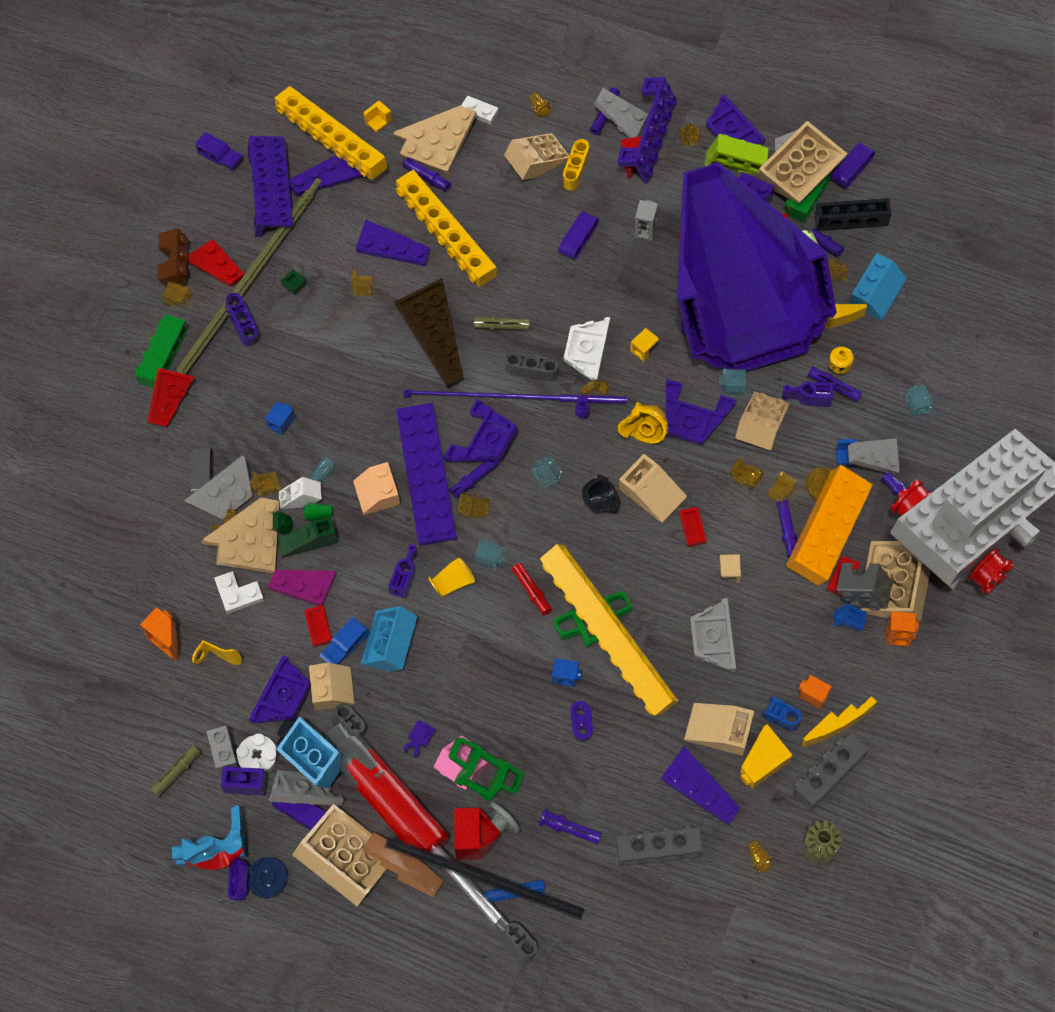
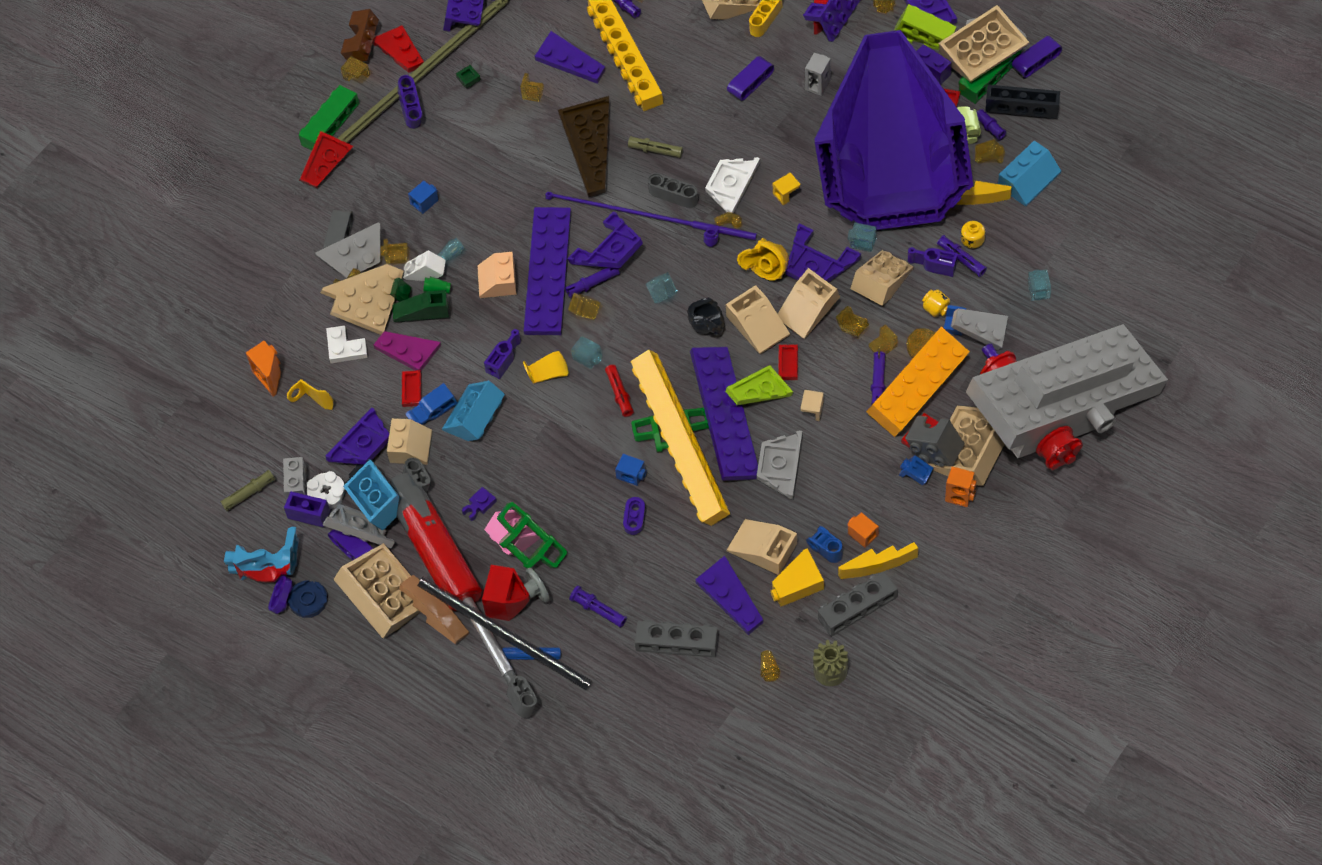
camera: 15 degrees right, 5 degrees down
(645, 594) = (724, 417): none -> dark purple plate
(672, 560) = (759, 387): none -> lime wing
(699, 463) = (808, 303): none -> tan slope
(824, 438) = (936, 303): none -> yellow head

